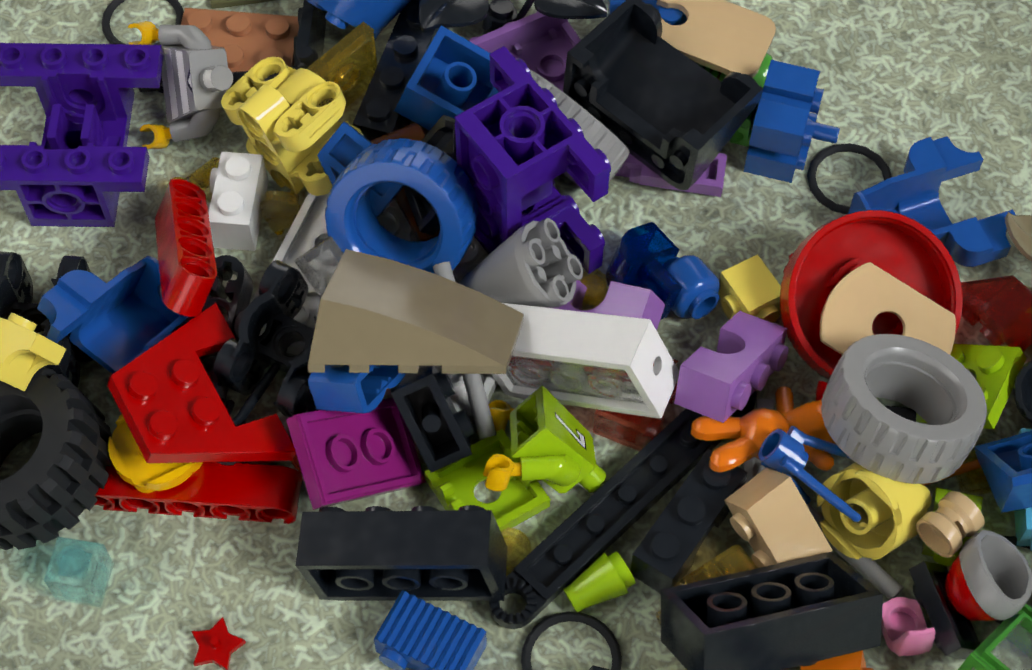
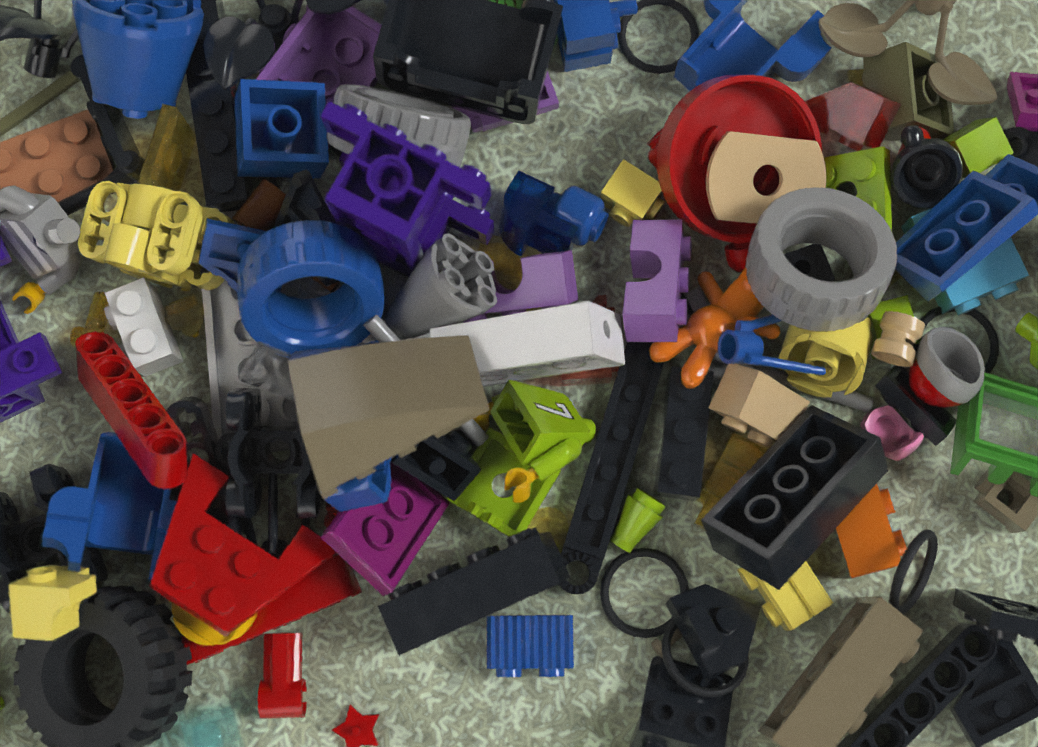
camera: 25 degrees left, 20 degrees up
(172, 563) = (282, 677): none -> red piece

